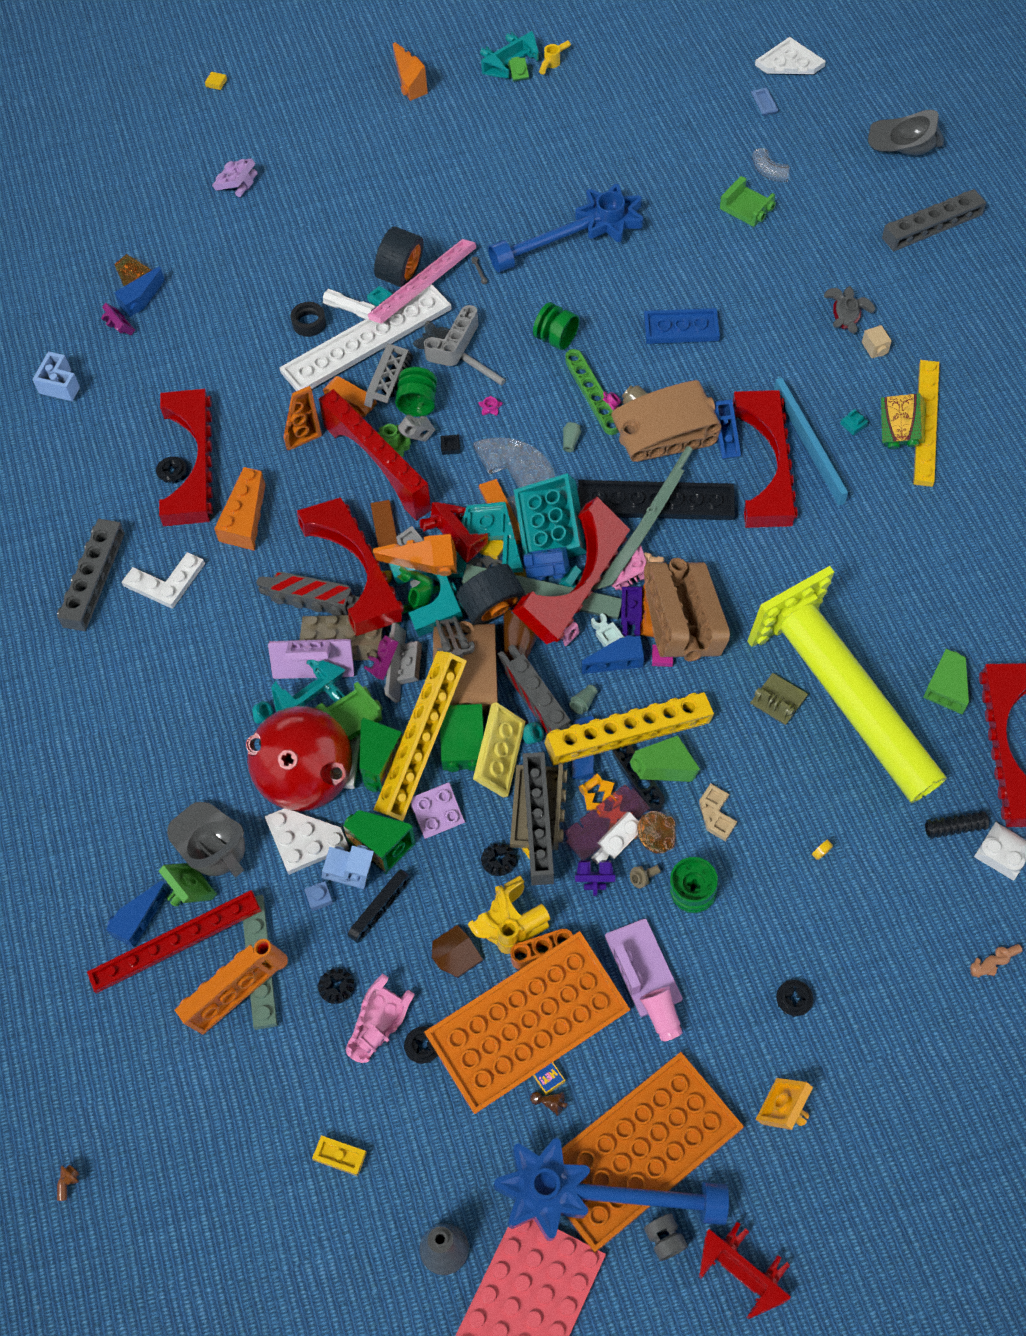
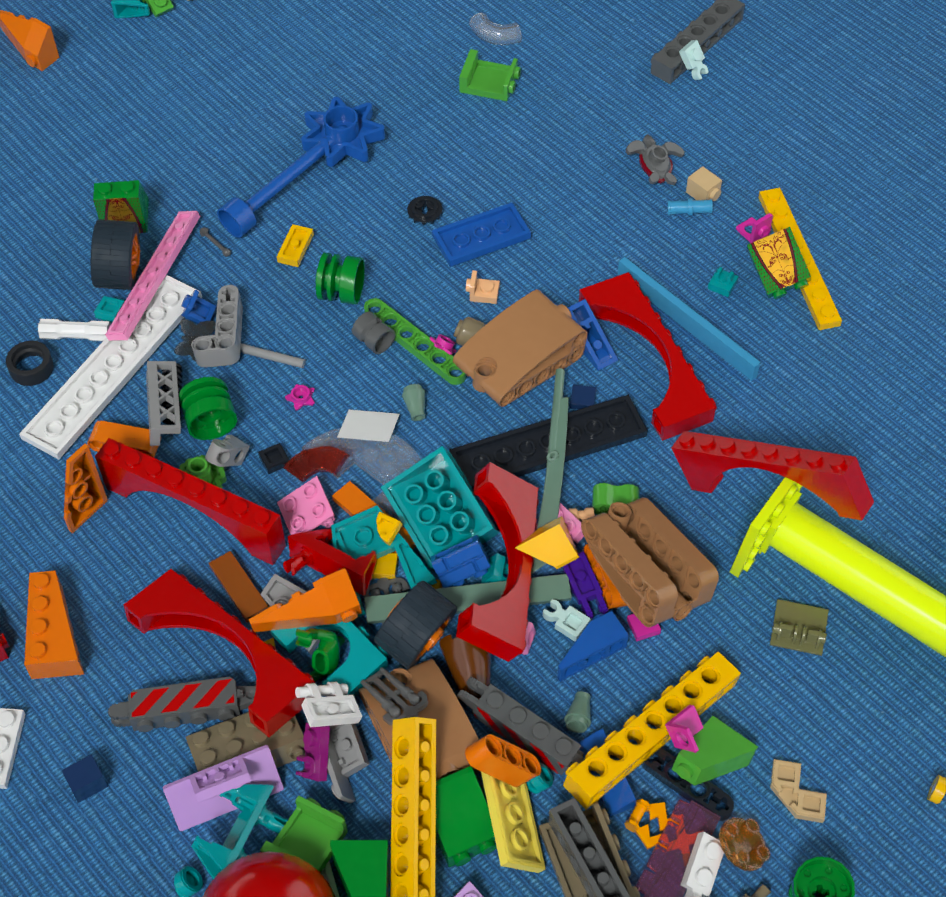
camera: 25 degrees left, 5 degrees down
(224, 619) = (84, 778): none -> dark blue panel
(403, 631) = (329, 710): none -> white plate
(422, 220) = (122, 202): none -> green slope
(442, 316) = (196, 308): none -> blue bracket
(456, 487) = (307, 508): none -> bright pink hinge
(477, 455) = (316, 460): none -> clear red tile
(504, 520) = (387, 527): none -> yellow tile
(506, 709) = (502, 760): none -> orange beam
(528, 443) = (368, 425): none -> white sticker
(536, 291) = (295, 245): none -> yellow plate
(563, 375) = (373, 332): none -> dark grey wheel
(616, 572) = (551, 544): none -> yellow slope
(644, 288) = (416, 208): none -> black gear
(649, 734) = (684, 727): none -> dark pink bracket
(662, 369) = (482, 289): none -> light nougat bracket
(681, 551) = (606, 494): none -> bright green axle
(699, 474) = (582, 396): none -> dark blue tile
(833, 585) = (828, 475): none -> red arch
(857, 354) = (690, 207): none -> dark azure pin
(903, 387) = (760, 229): none -> dark pink bracket
(918, 234) = (692, 58): none -> light aqua plate

